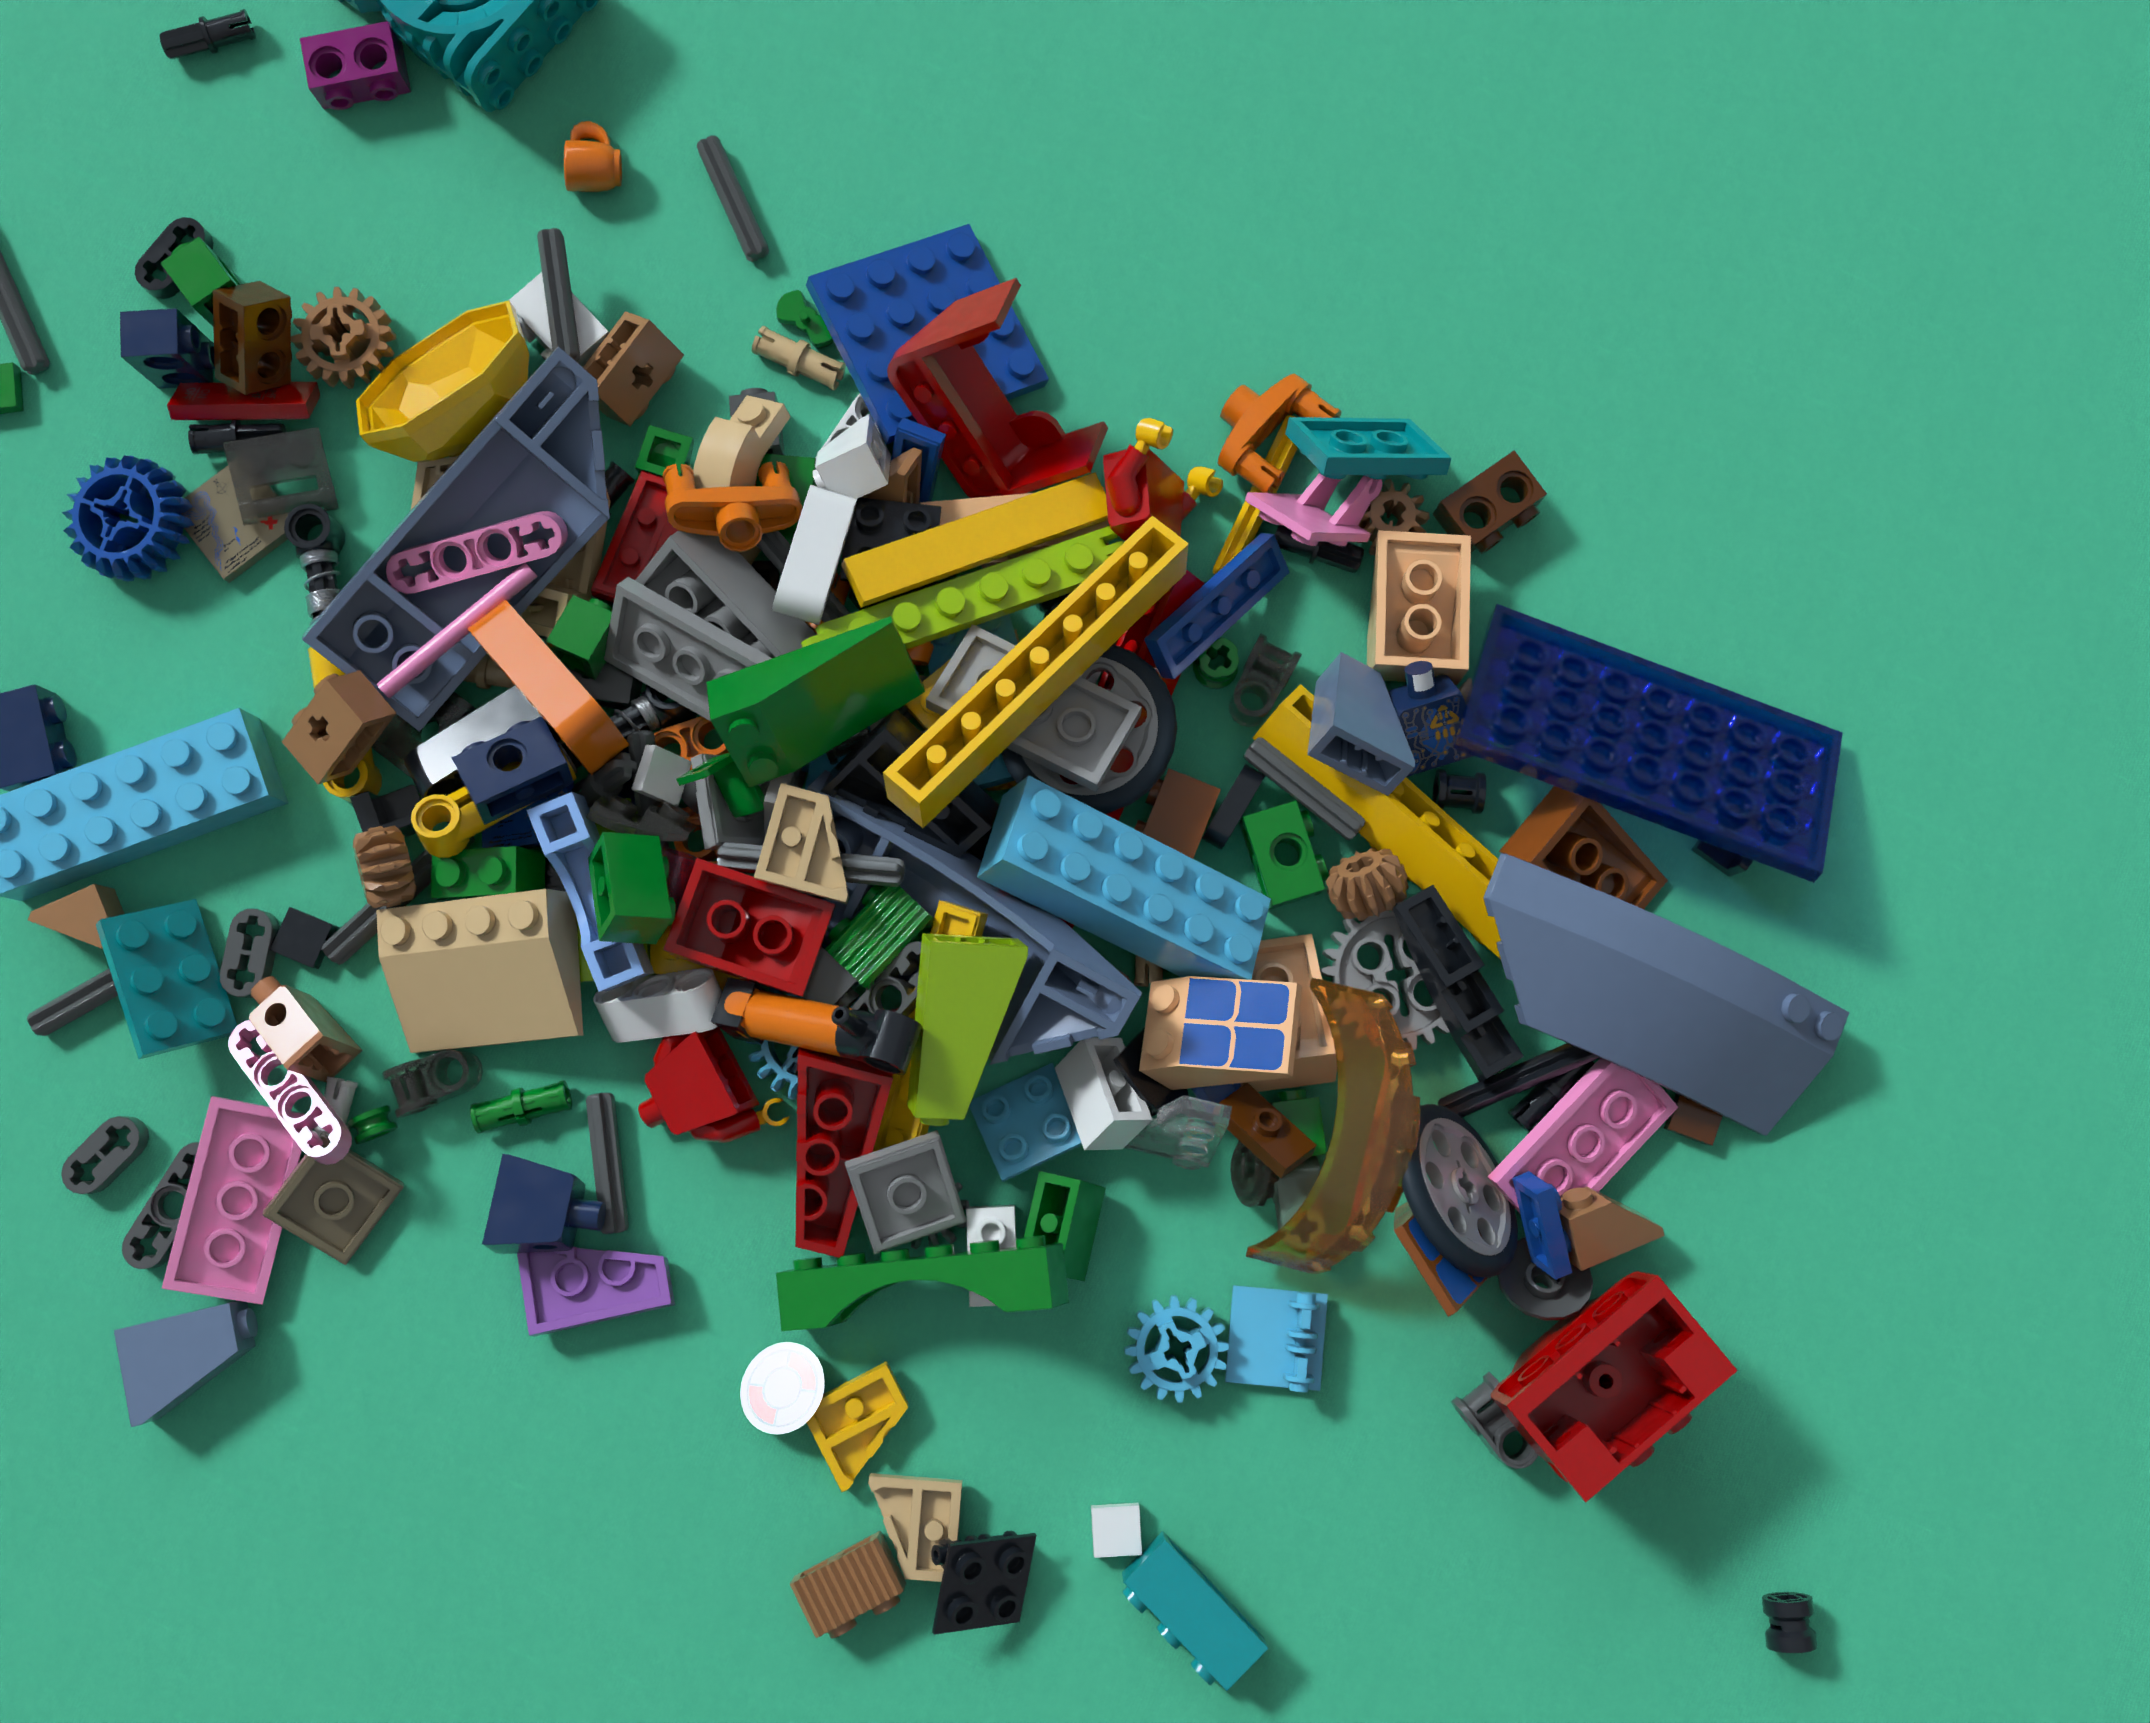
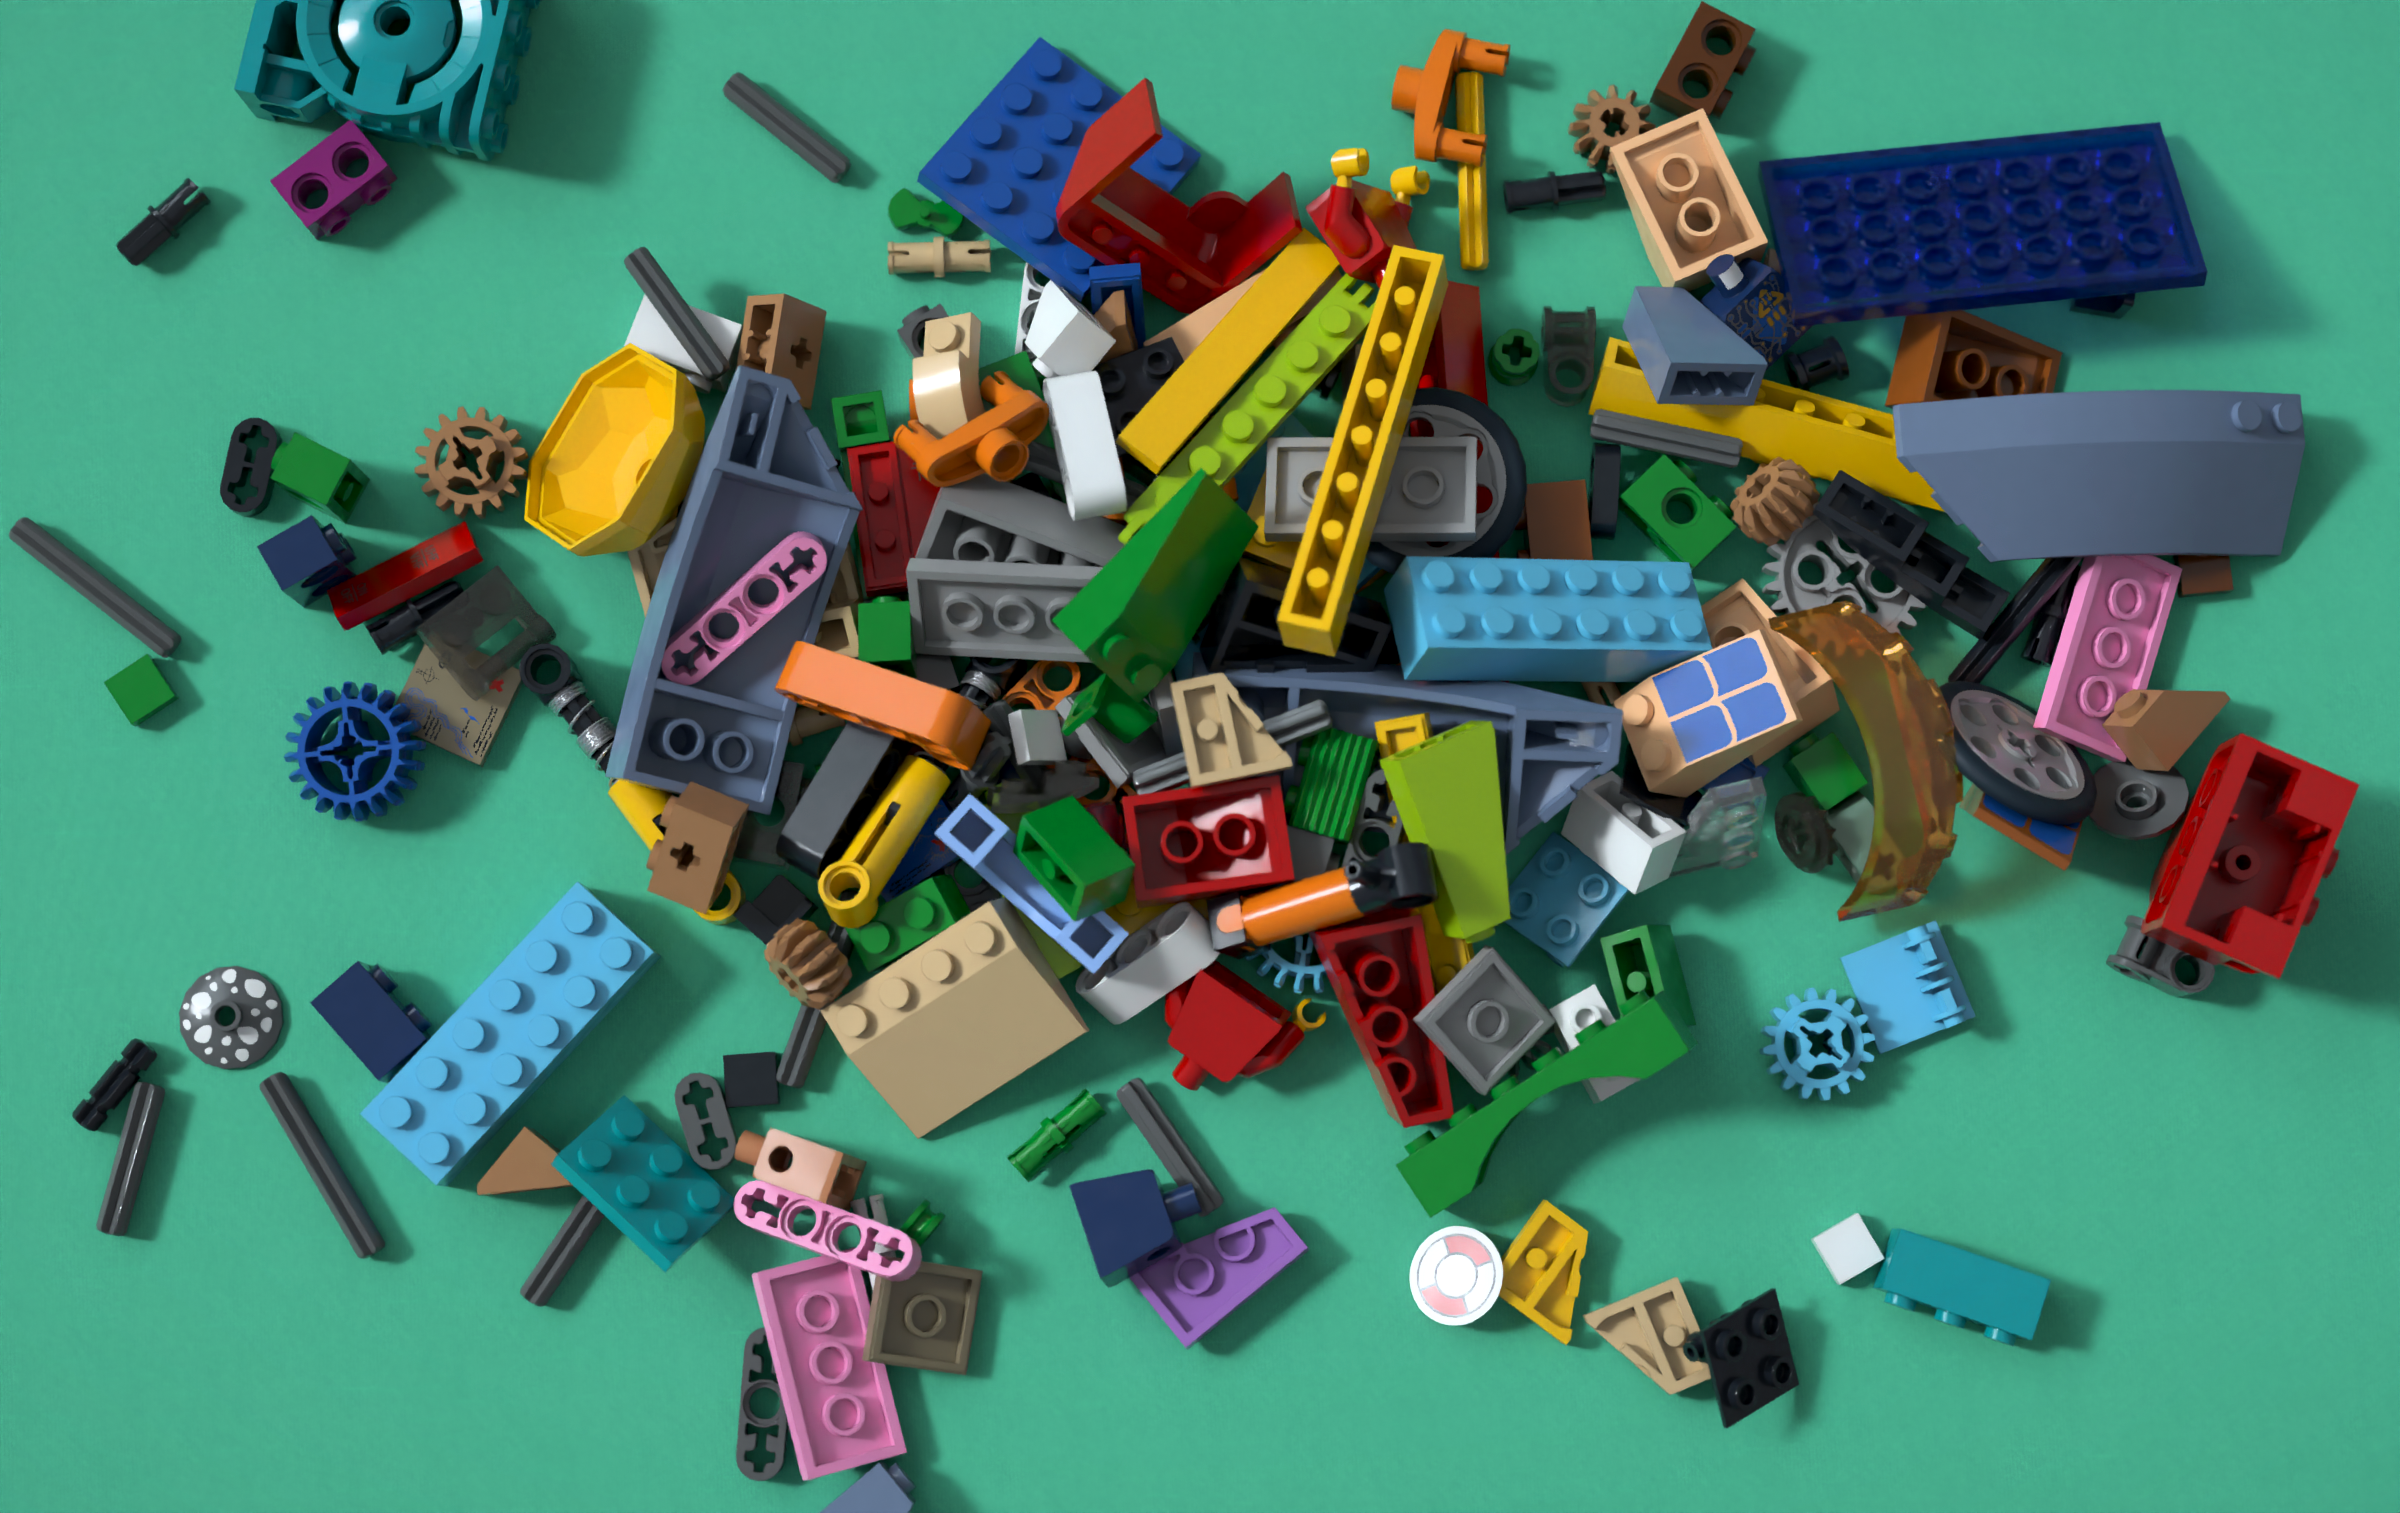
camera: 25 degrees left, 0 degrees up
(97, 1148) = (658, 1384): dark grey beam -> none
(252, 337) = (390, 507): reddish brown brick -> none
(425, 1081) = (953, 1156): clear smoke piece -> none
(455, 631) = (762, 695): bright pink bar -> none
(503, 792) = (896, 829): dark blue brick -> none
(591, 164) = (627, 163): orange piece -> none
(849, 1586) = (1620, 1429): medium nougat brick -> none
(1216, 606) = (1490, 300): blue plate -> none
(1267, 1131) = (1803, 788): reddish brown plate -> none
(1306, 512) = (1536, 171): bright pink plate -> none
(1367, 447) = (1557, 69): teal plate -> none
(1542, 1225) = (2109, 746): blue plate -> none

